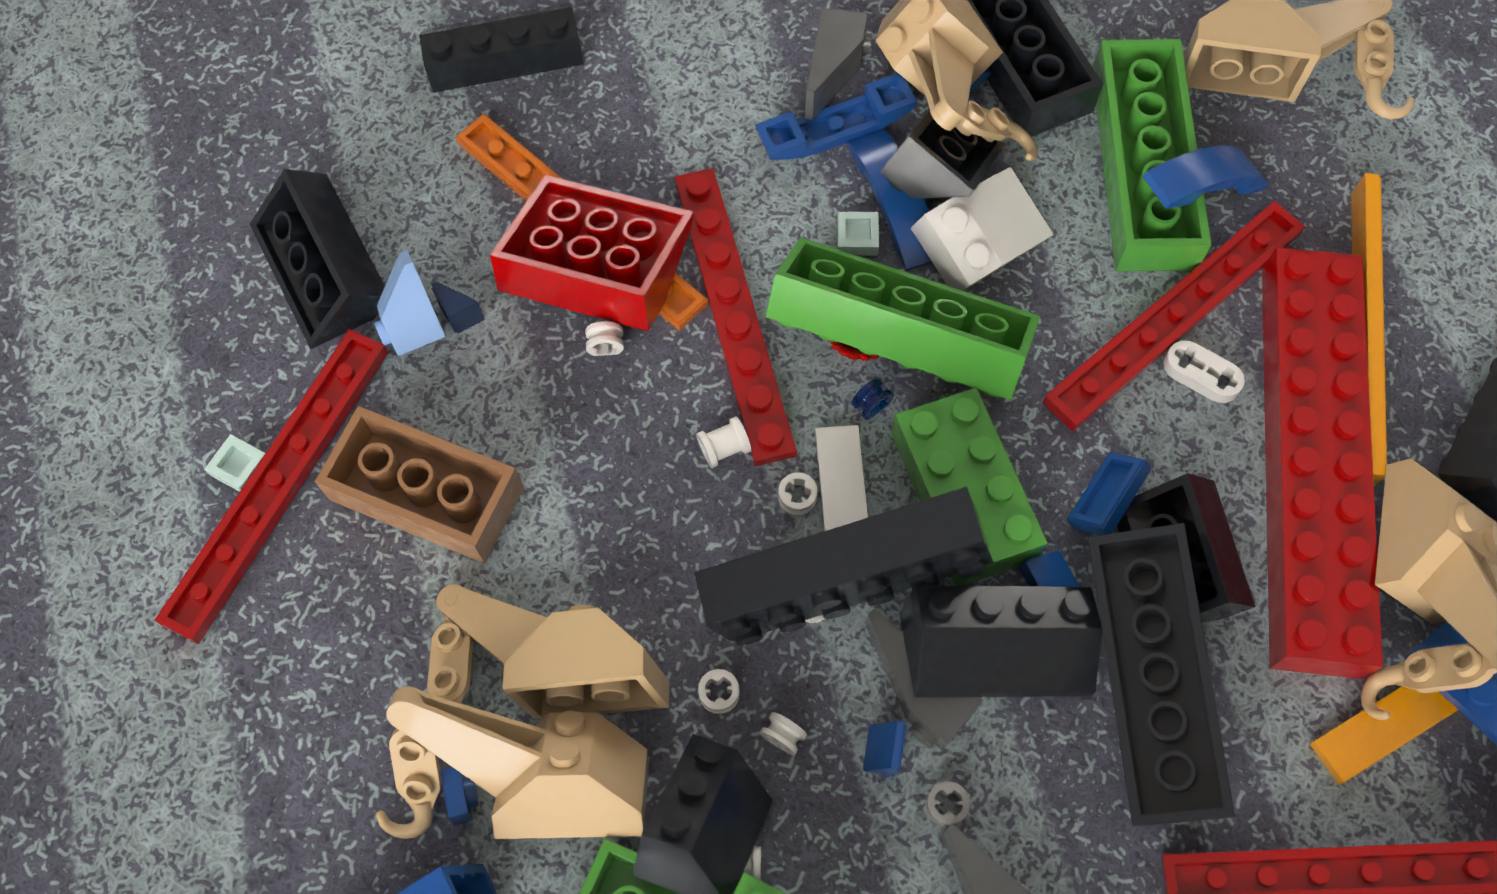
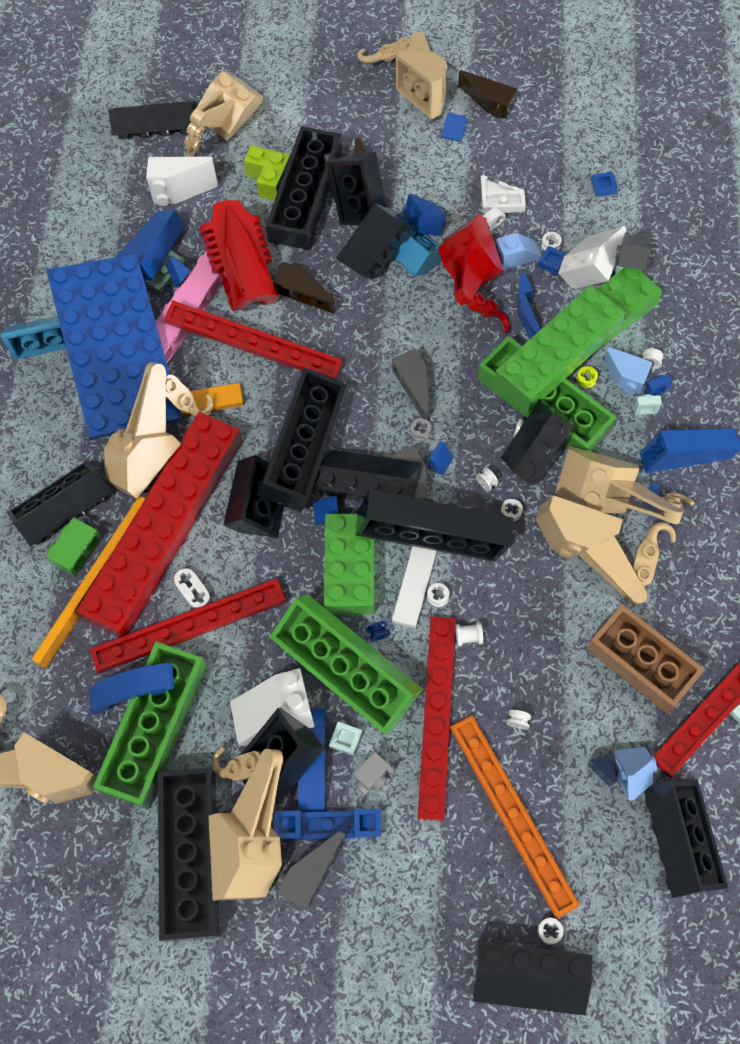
camera: 160 degrees left, 0 degrees up
(488, 89) = (550, 940): none -> white bush
(592, 252) = (510, 776): red slope -> none
(797, 198) = (372, 774): none -> light grey brick
(1109, 494) = (277, 539): blue tile -> none
(1436, 367) = (73, 547): none -> bright green brick

